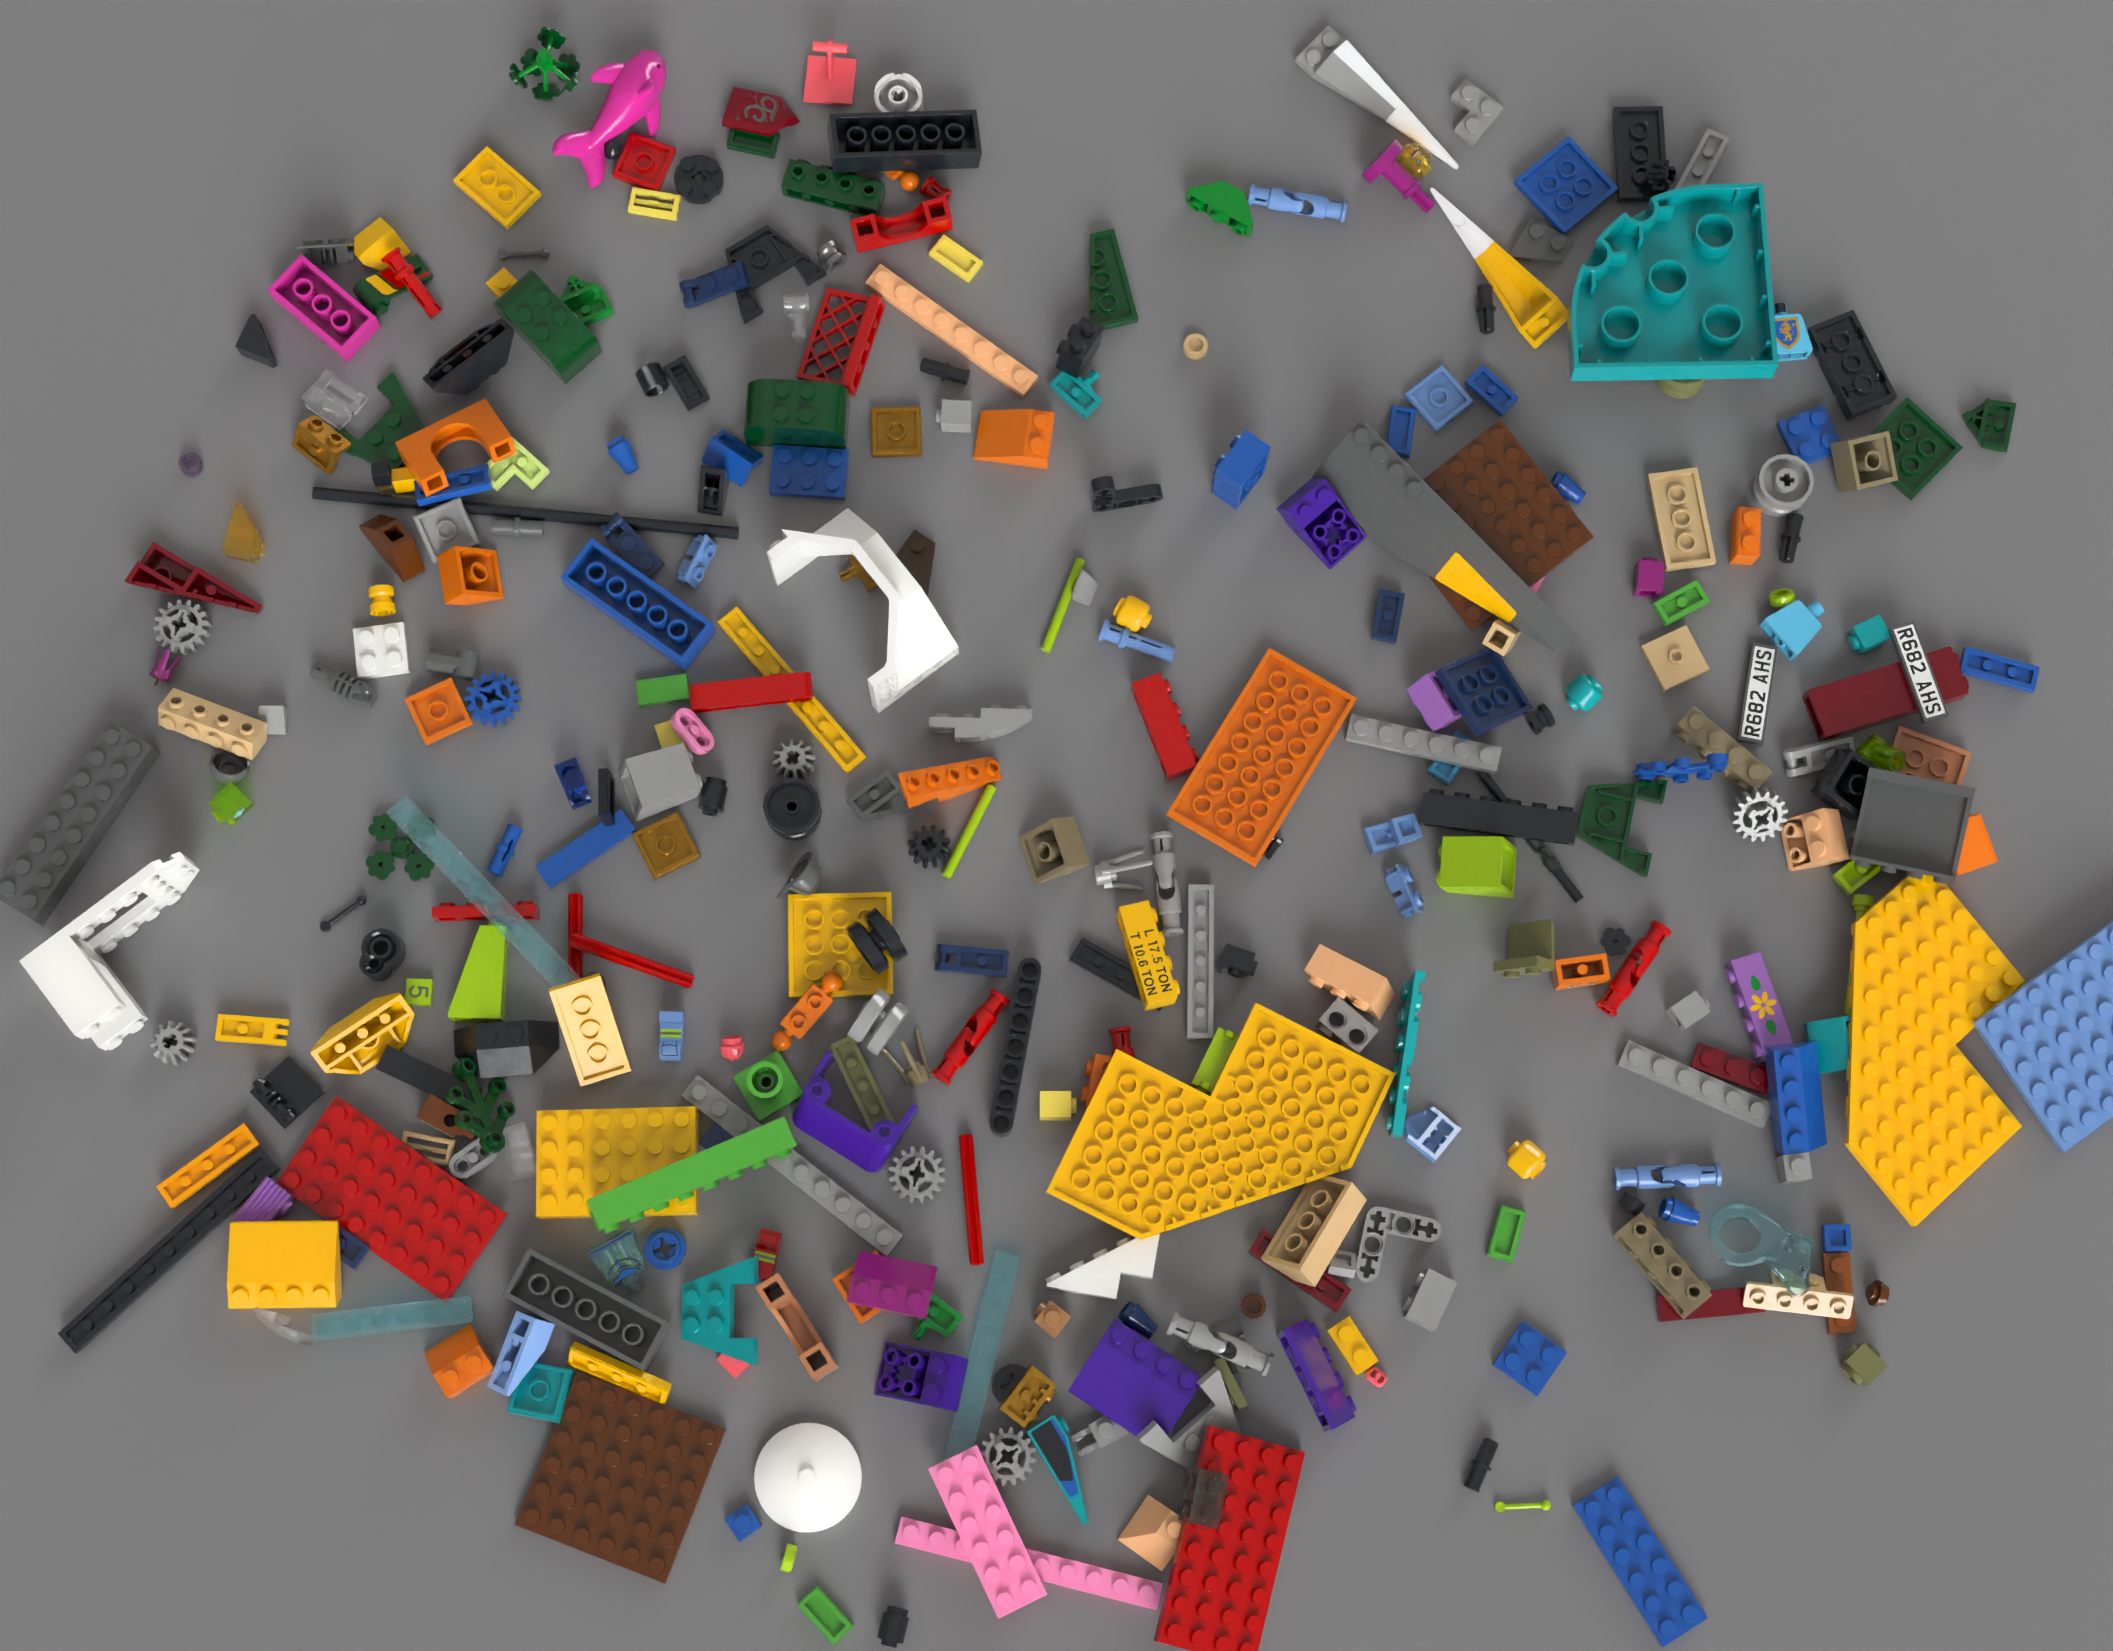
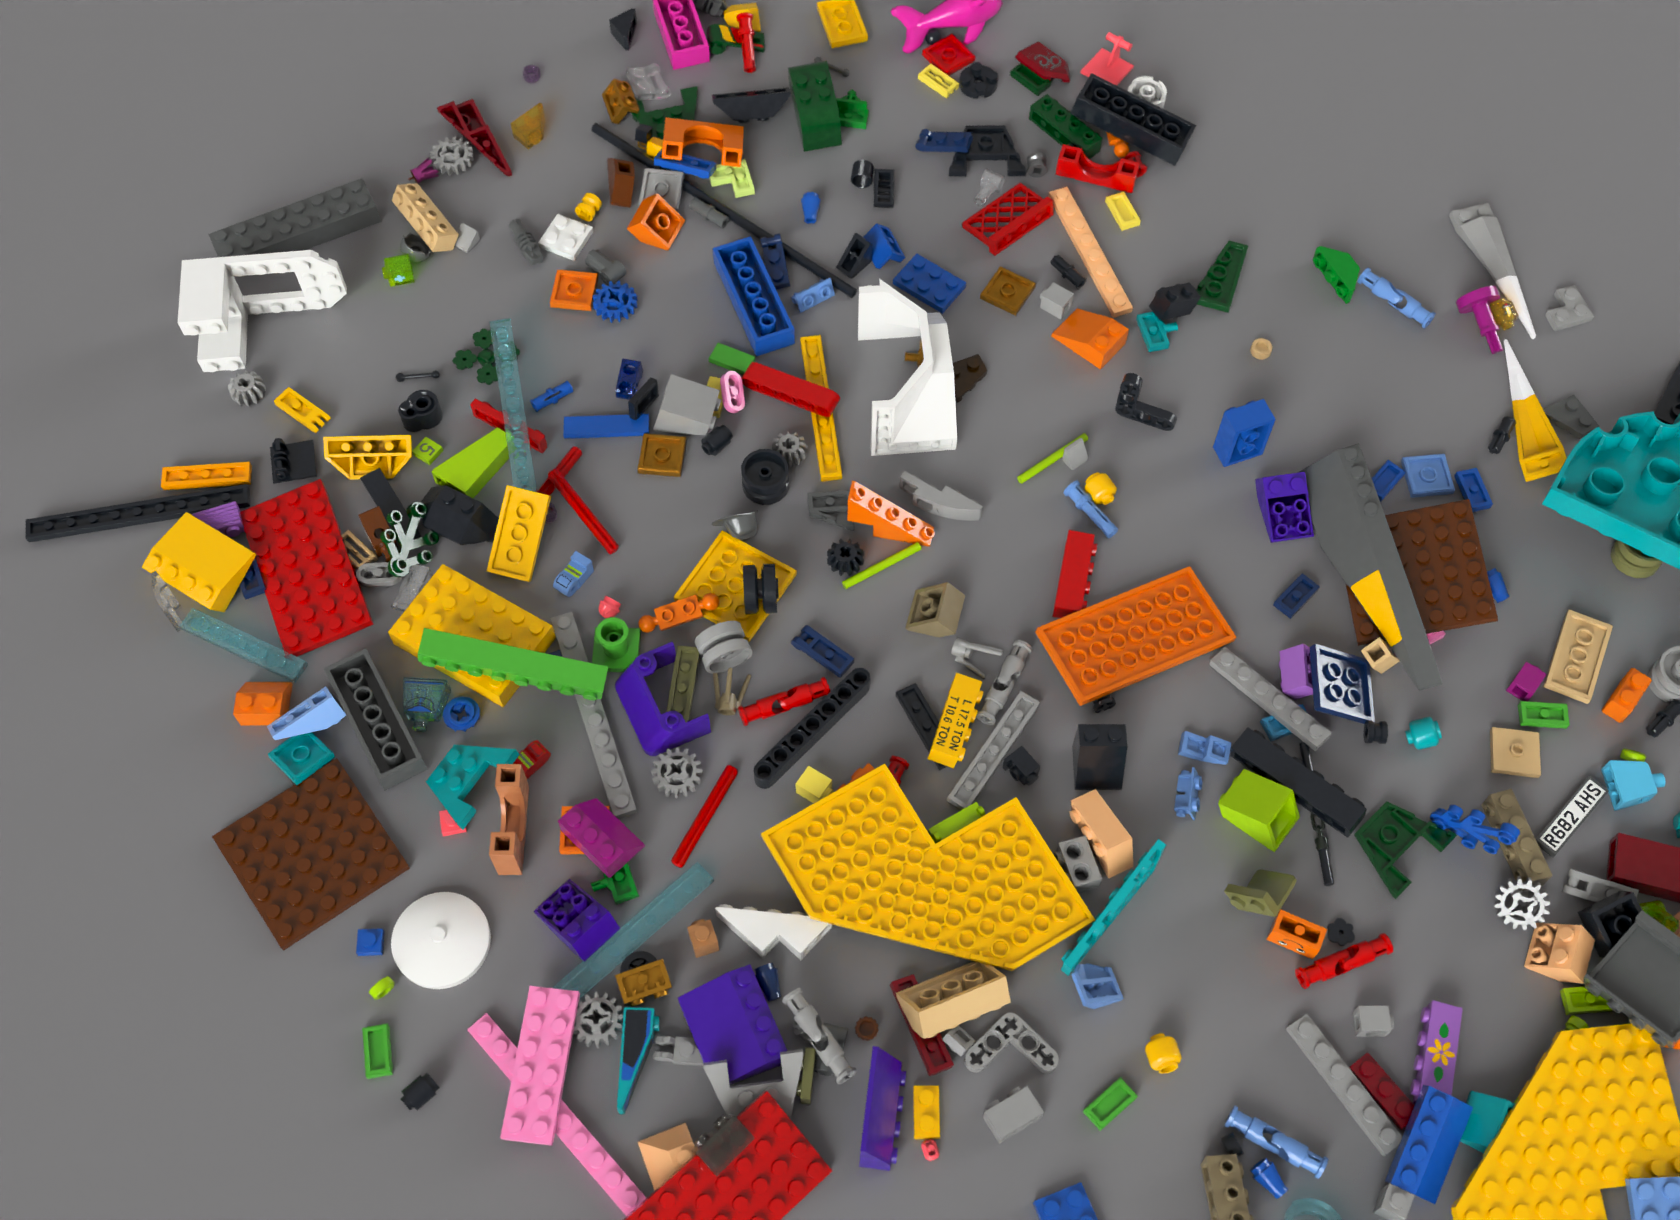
camera: 35 degrees right, 15 degrees down
(618, 1373) = (363, 777): yellow tile -> none
(796, 414) = (945, 238): dark green brick -> none
(1305, 910) = (1099, 756): none -> black slope
(1565, 186) = (1613, 388): blue plate -> none

